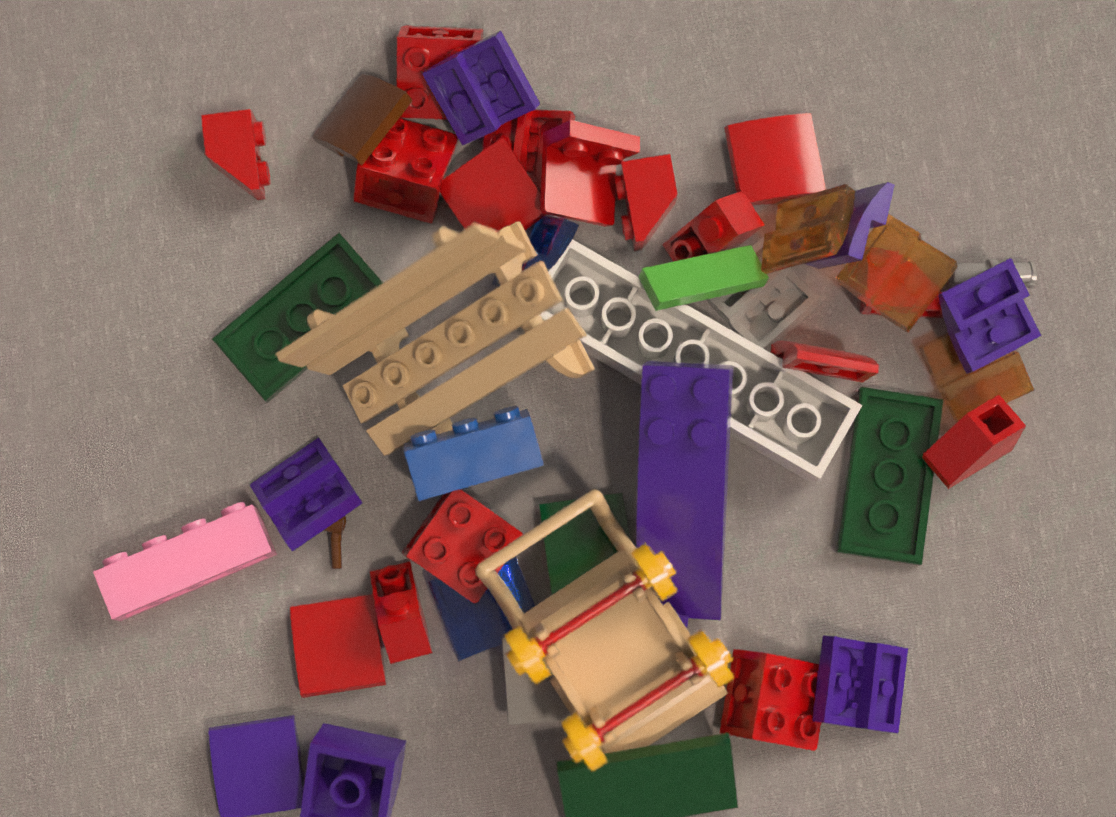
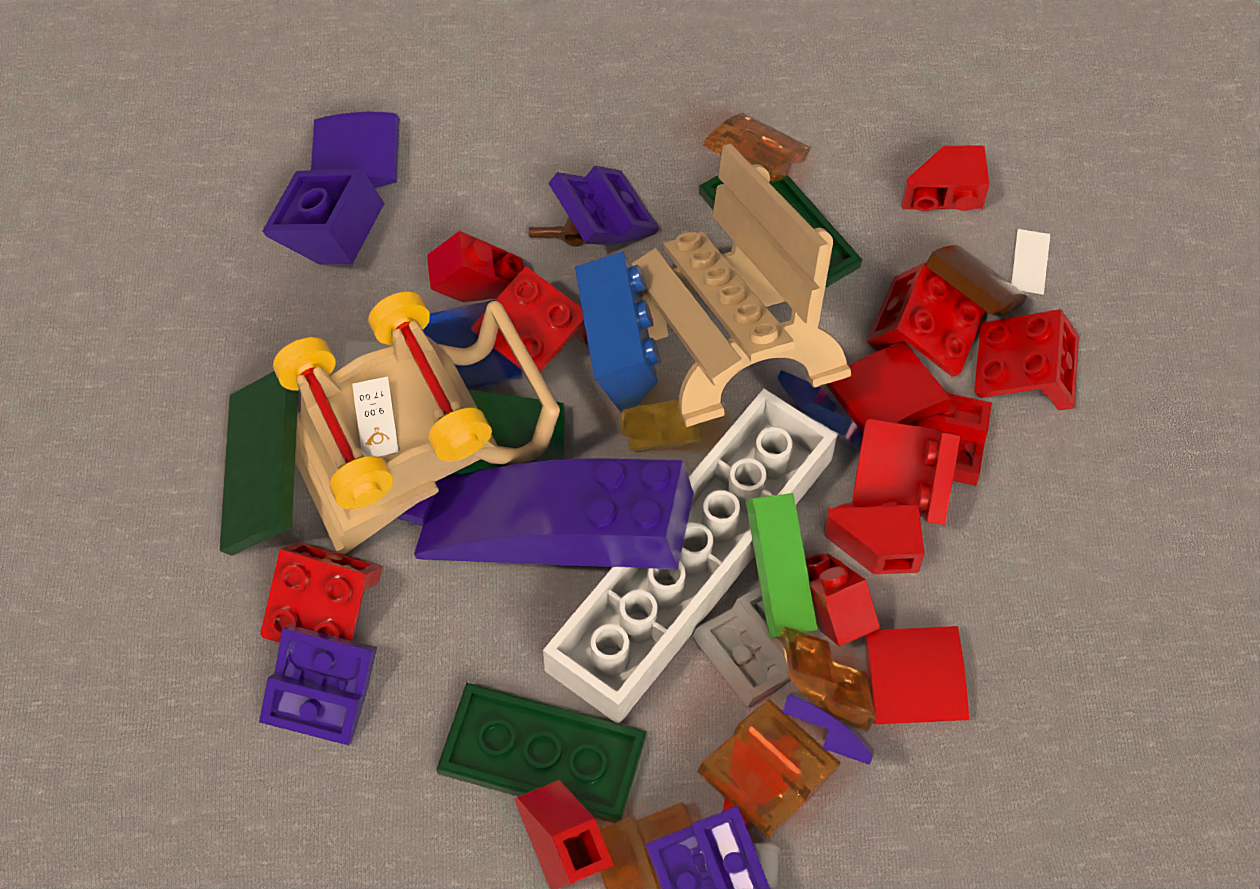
camera: 95 degrees right, 20 degrees down
(184, 562) = (554, 106): bright pink brick -> none
(218, 344) = (758, 144): none -> clear orange slope
(316, 72) = (1030, 261): none -> white sticker
(337, 646) = (451, 207): red slope -> none
(481, 88) = (1004, 381): dark purple slope -> none
(559, 406) = (657, 427): none -> clear yellow hips
(627, 663) = (375, 417): none -> white sticker
(825, 361) = (676, 673): red slope -> none

